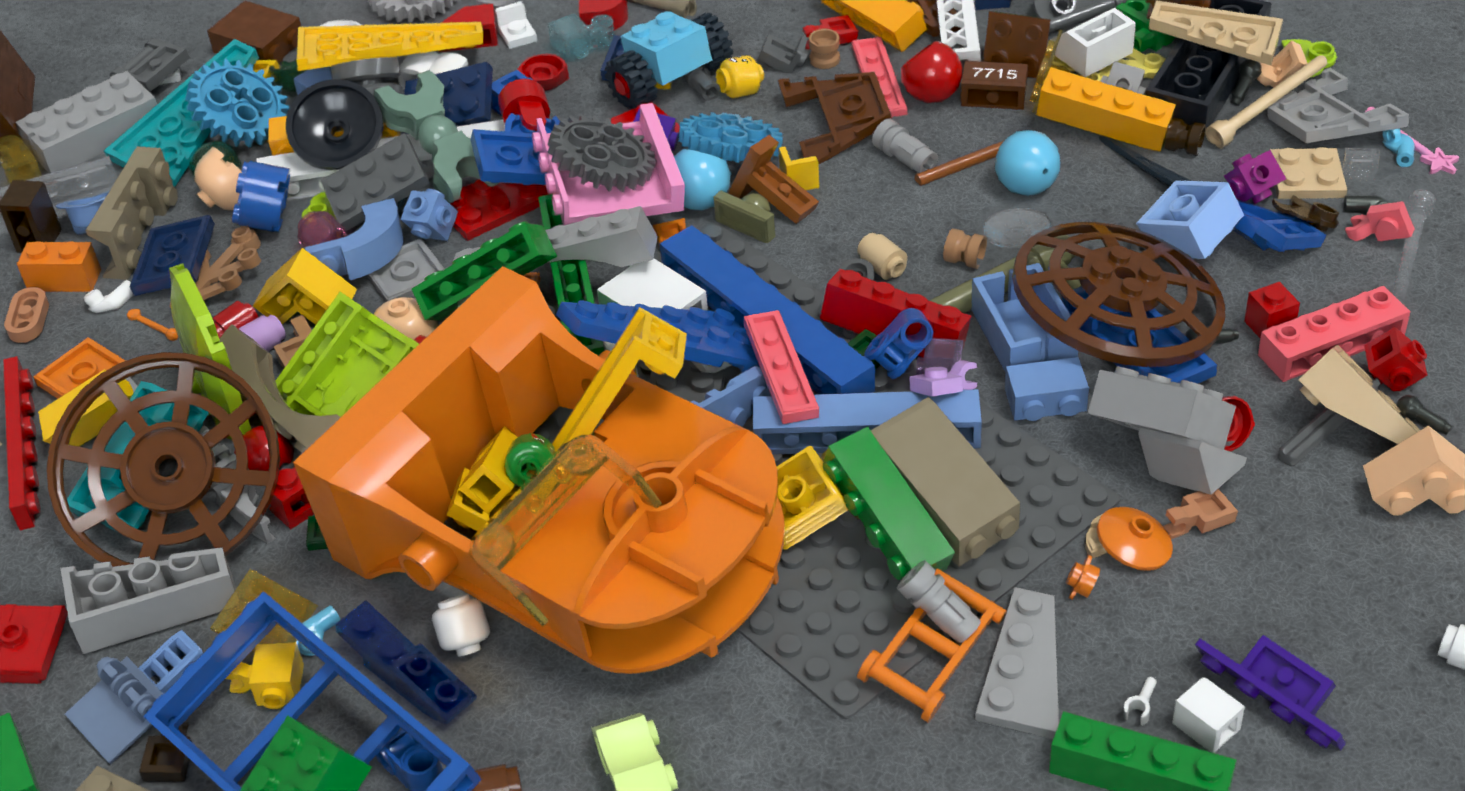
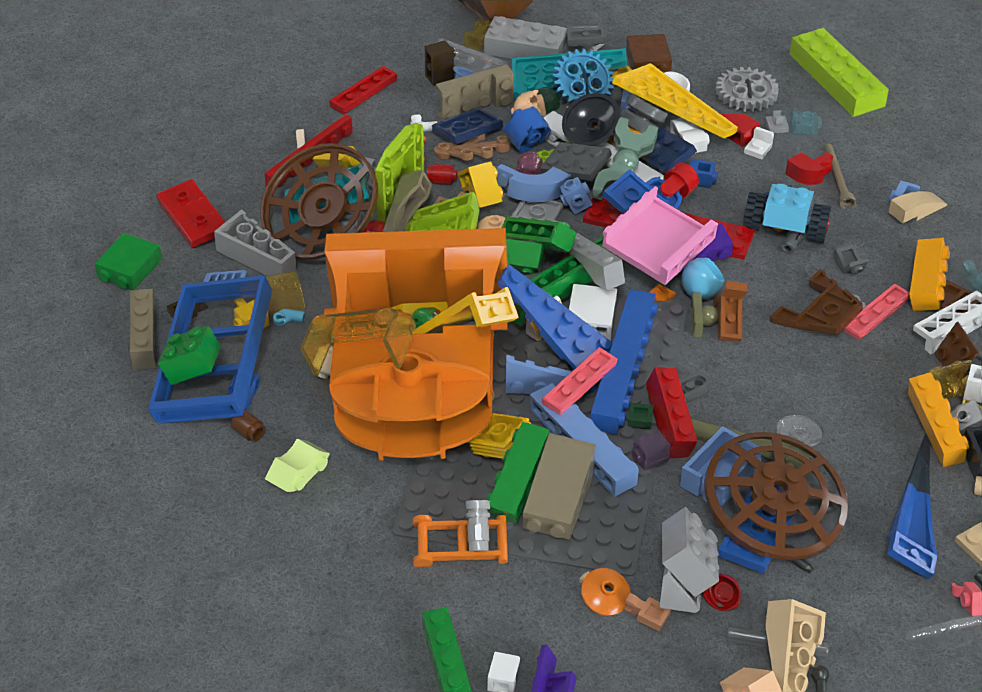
camera: 50 degrees right, 0 degrees up
(24, 321) = (386, 104): nougat plate -> none
(59, 266) = (422, 94): orange brick -> none
(76, 367) = (369, 143): orange plate -> none
(115, 707) = (194, 273): sand blue hinge -> none
(265, 331) = (443, 187): lavender brick -> none
(403, 666) = (290, 357): clear blue slope -> none
(545, 69) = (733, 175): red hat -> none
(577, 40) = (772, 172): clear light blue brick -> none
(601, 153) = (658, 225): dark grey gear -> none
(725, 135) = (745, 267): dark azure gear -> none
(739, 76) = (809, 252): yellow head -> none
(802, 171) = (754, 319): yellow panel -> none
(824, 48) = (871, 274): medium nougat wheel -> none
(842, 25) = (892, 271): red plate -> none
(883, 254) = (721, 385): tan brick -> none
(897, 142) = (822, 347): light grey axle -> none
(898, 344) = (648, 420): blue piece -> none
(932, 73) = (891, 329): red helmet -> none
(939, 382) = (628, 451): lavender plate -> none
(957, 164) = (852, 388): dark orange bar -> none
(964, 248) = (761, 416): medium nougat wheel -> none
(994, 85) = (913, 358): reddish brown brick -> none
(1023, 670) = (481, 586): light grey wing -> none
(1027, 162) = (854, 407): medium azure helmet -> none
(1046, 389) = (676, 495): medium blue brick -> none
(1082, 578) = (556, 581): orange plate -> none
(1141, 701) = (487, 650): white hand -> none
(1184, 136) = (959, 469): dark brown wheel -> none
(1193, 216) = (872, 500): light blue brick -> none
(1254, 177) = (954, 523): magenta brick -> none
(1270, 307) = (836, 575): red brick -> none
(1317, 215) = (950, 560): dark brown plate -> none
(1352, 323) = (850, 612): coral brick -> none
(1396, 360) = (846, 649): red brick -> none

